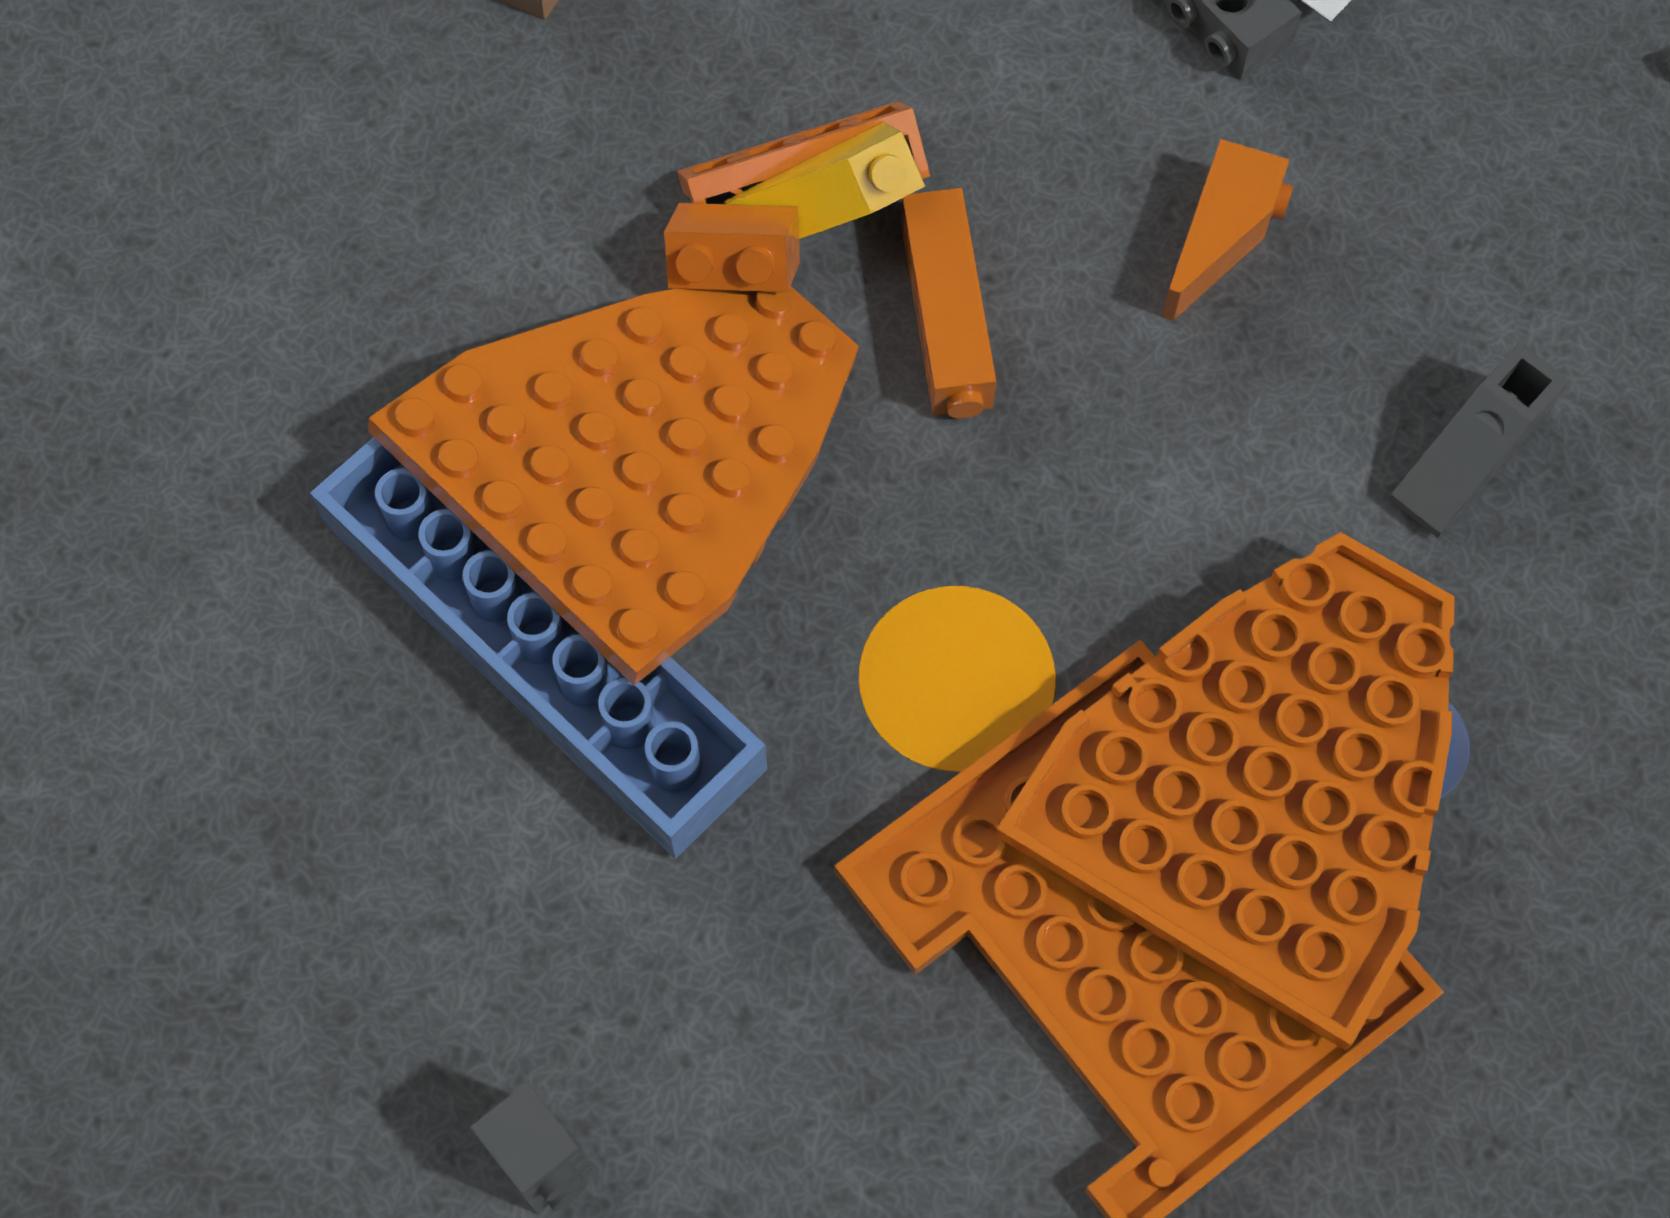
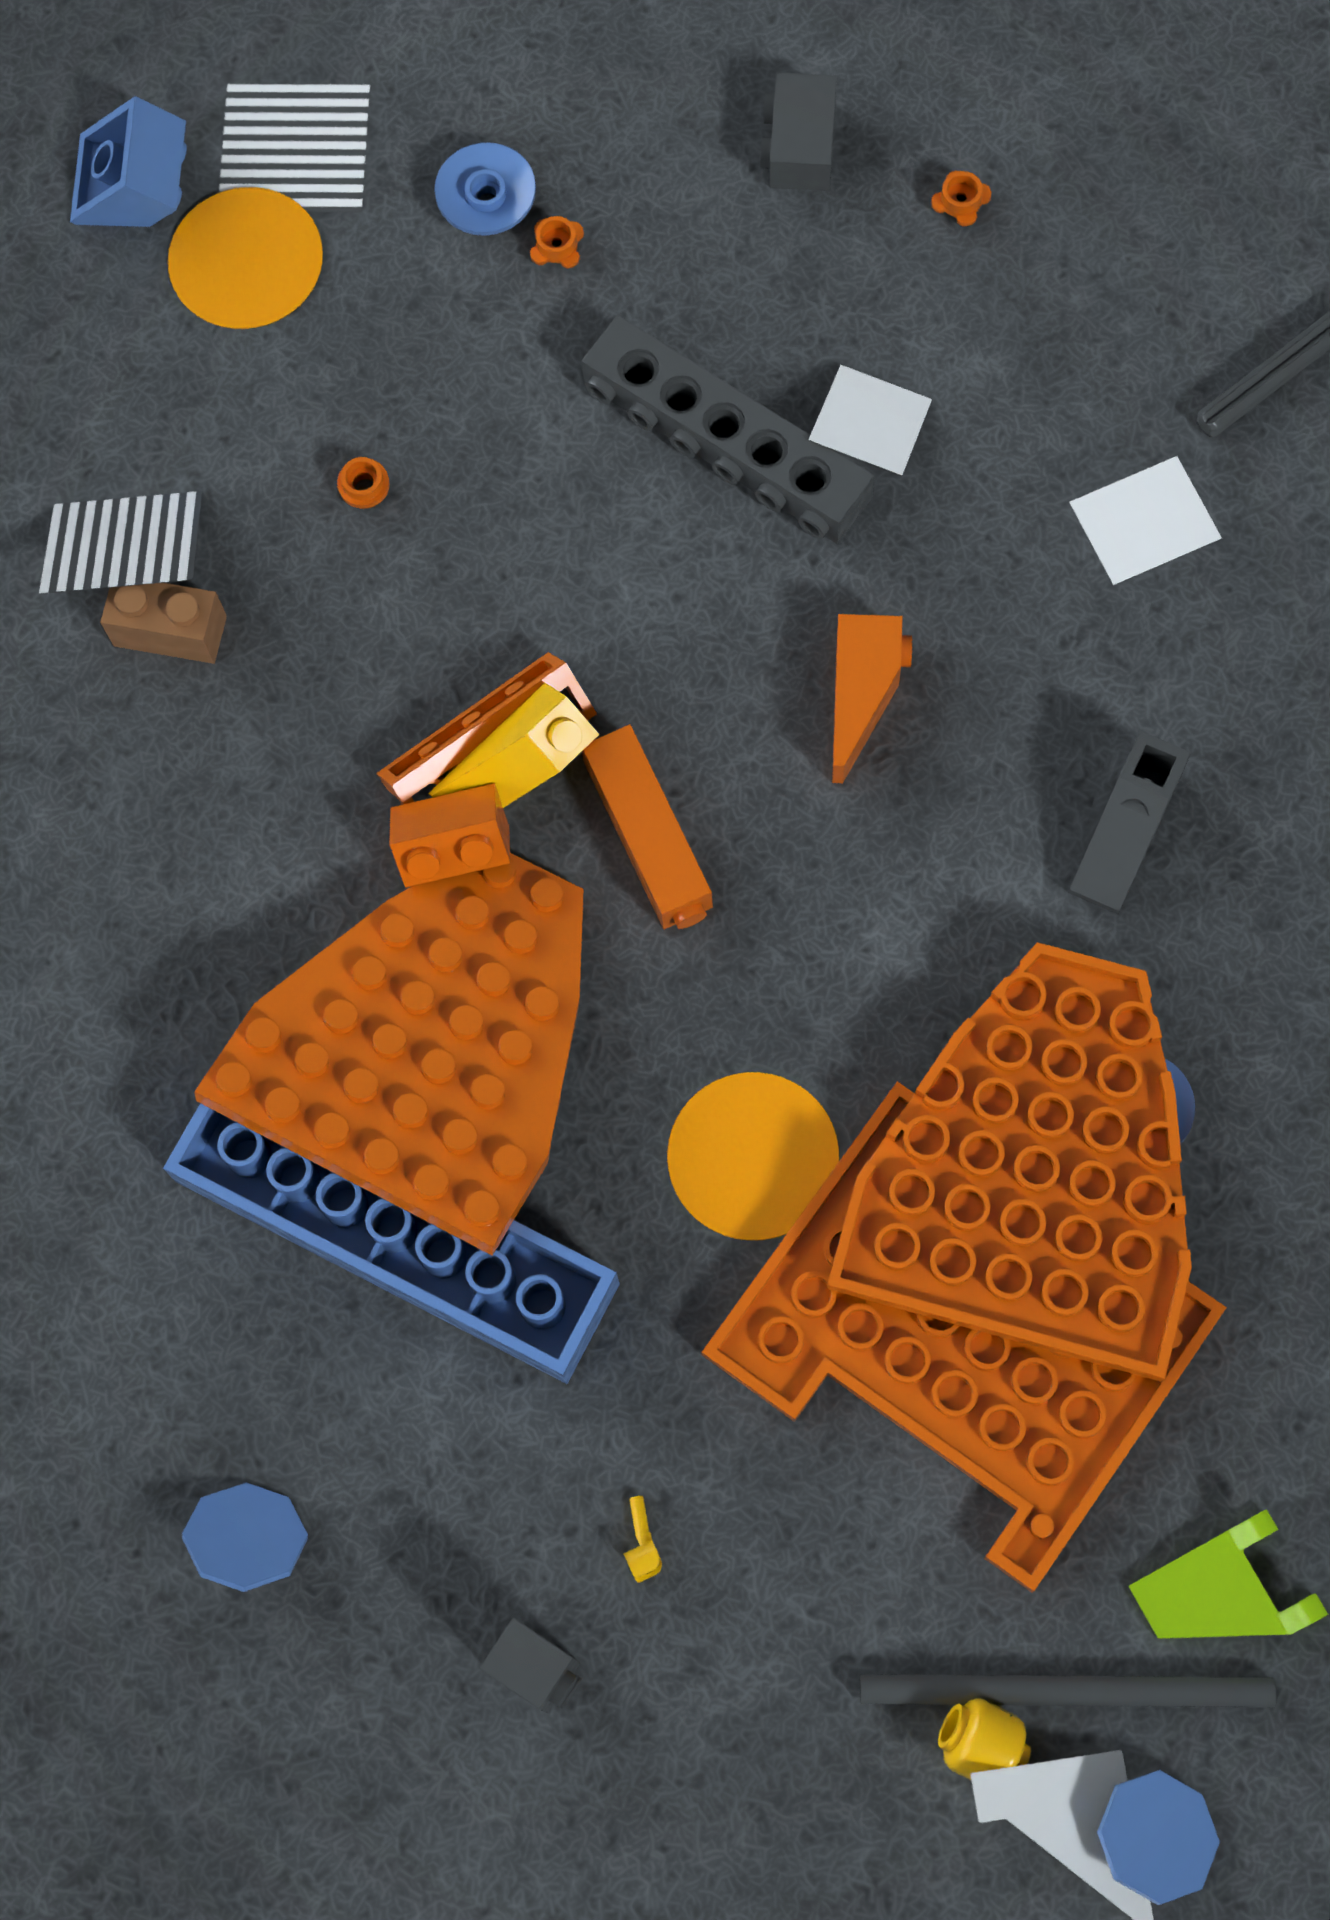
camera: 10 degrees left, 5 degrees up
(266, 915) = (244, 1537): none -> medium blue piece
(700, 1075) = (644, 1559): none -> yellow hand
(1581, 146) = (1145, 520): none -> white sticker

